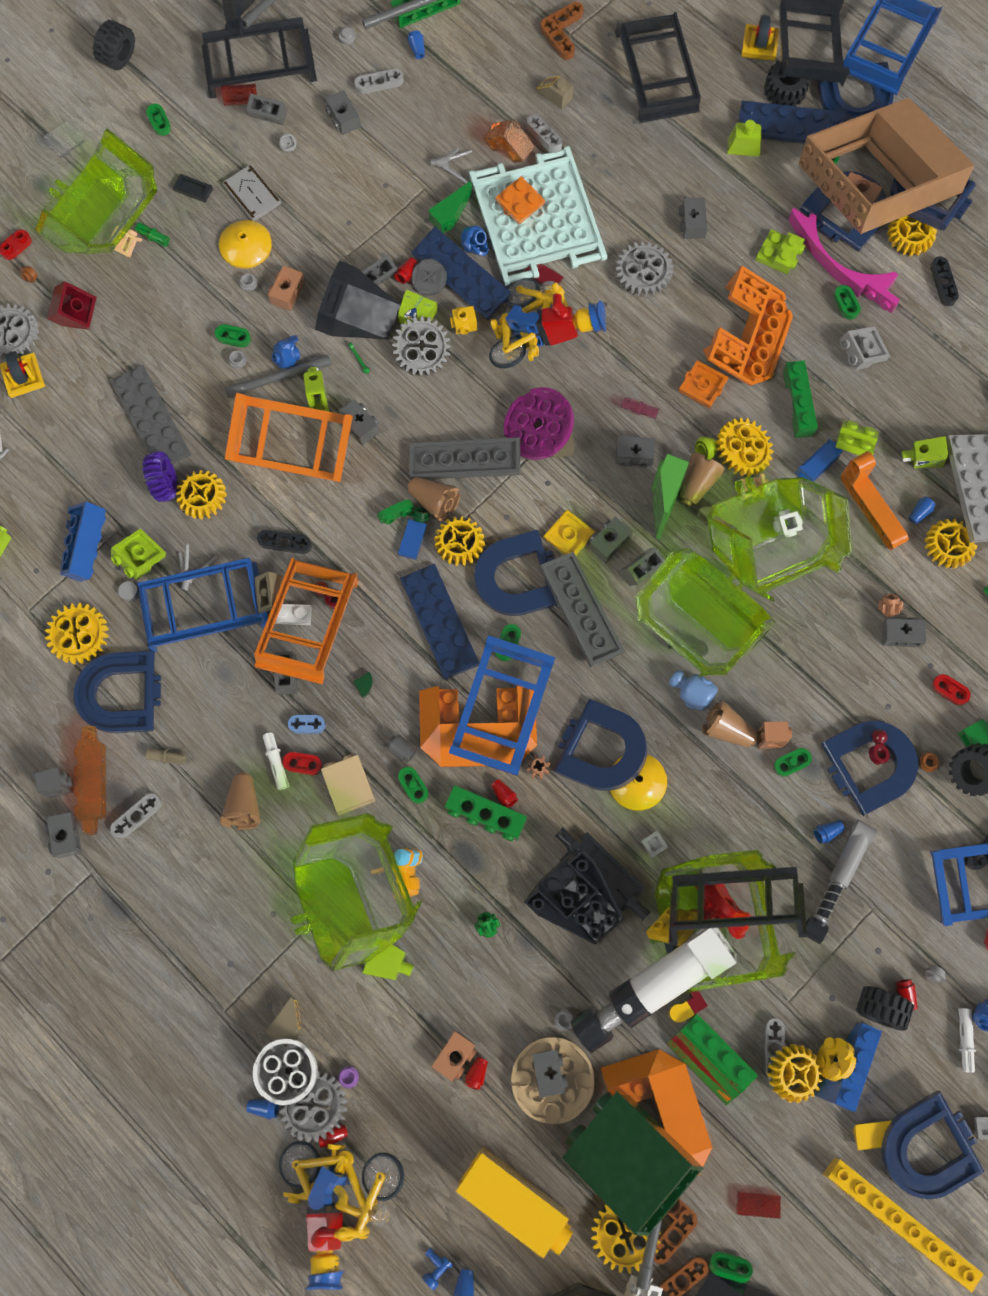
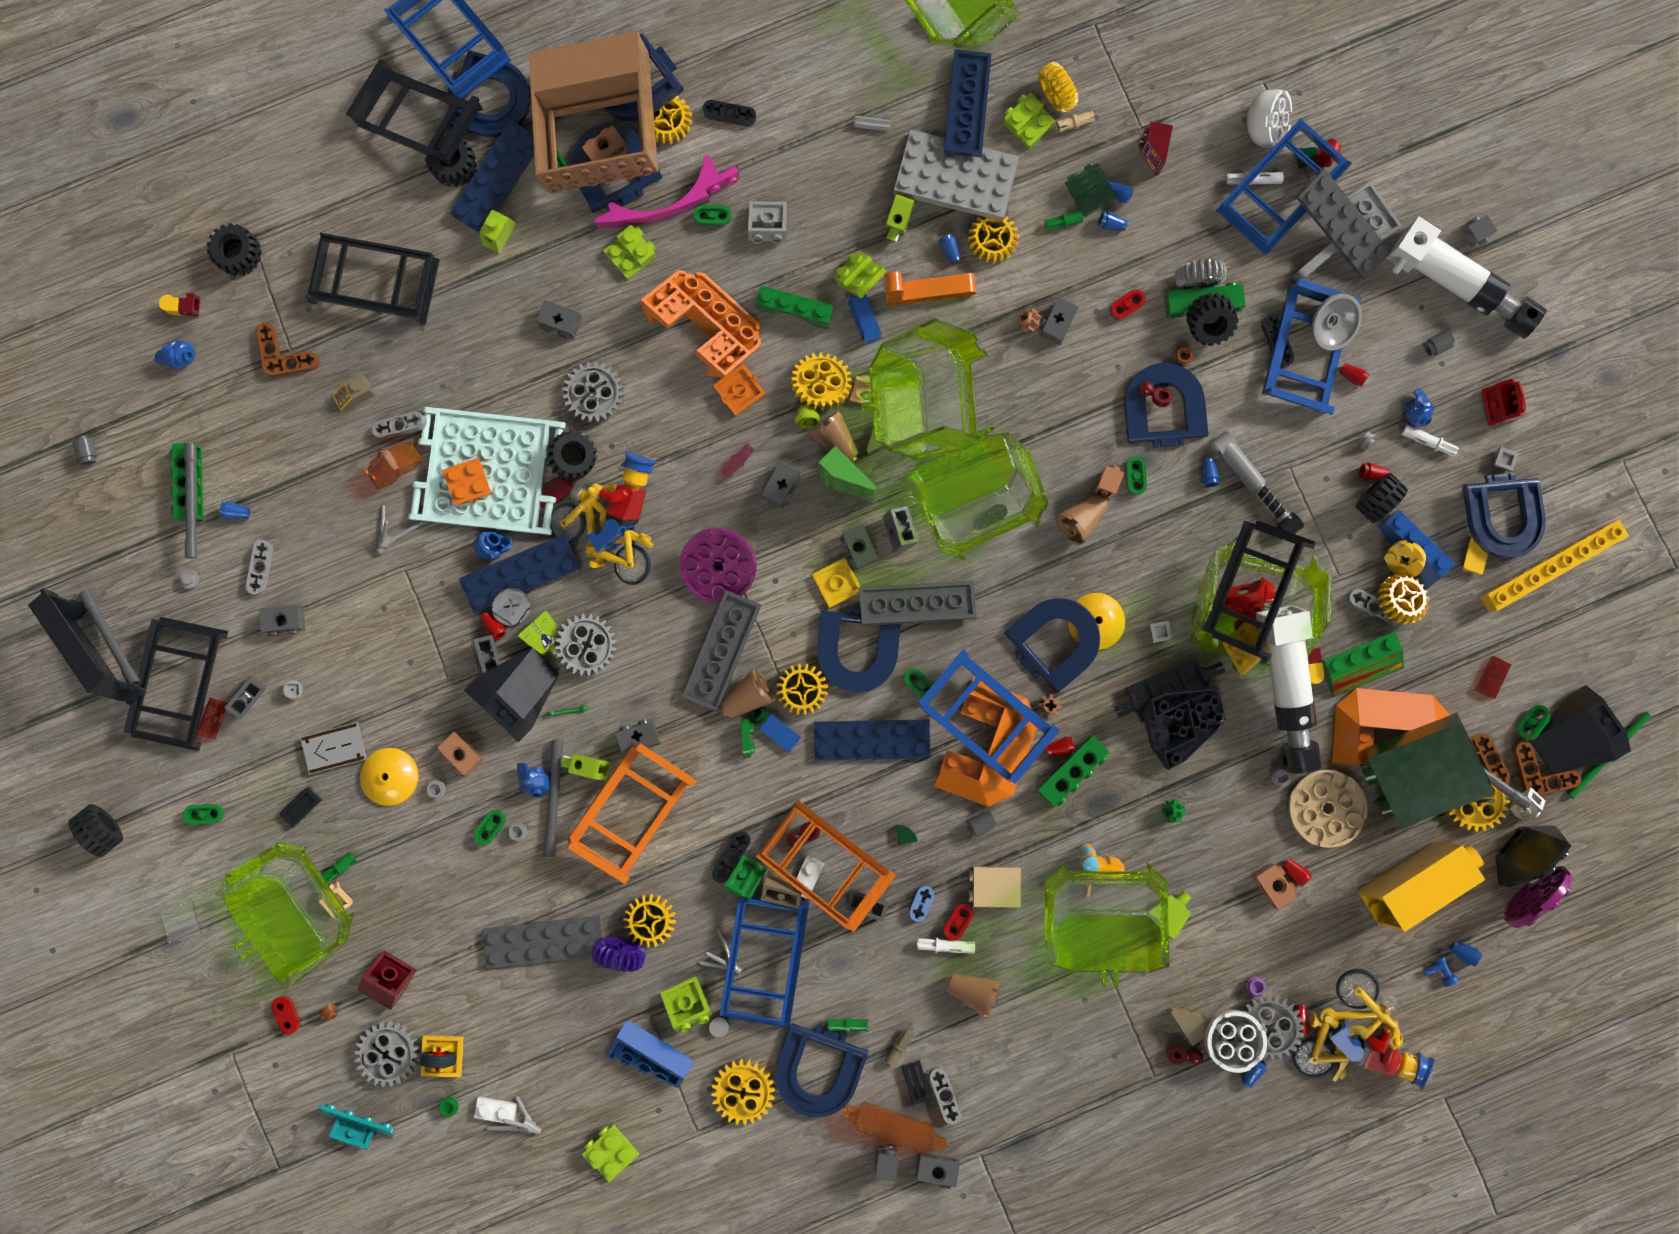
camera: 70 degrees left, 10 degrees up
(130, 801) = (911, 1065): none -> black tile
(170, 702) = (848, 1025): none -> green pin
(257, 1041) = (1194, 1056): none -> dark red plate
(269, 558) = (746, 878): none -> green plate
(413, 785) = (1019, 826): green plate -> none
(448, 211) = (446, 559): green slope -> none
(463, 320) = (569, 587): yellow brick -> none
(545, 1085) = (1335, 809): dark grey brick -> none
(586, 257) = (578, 441): none -> black tyre
(695, 691) = (1037, 537): medium blue piece -> none
(760, 40) = (388, 163): yellow plate -> none
(794, 523) = (916, 377): white brick -> none

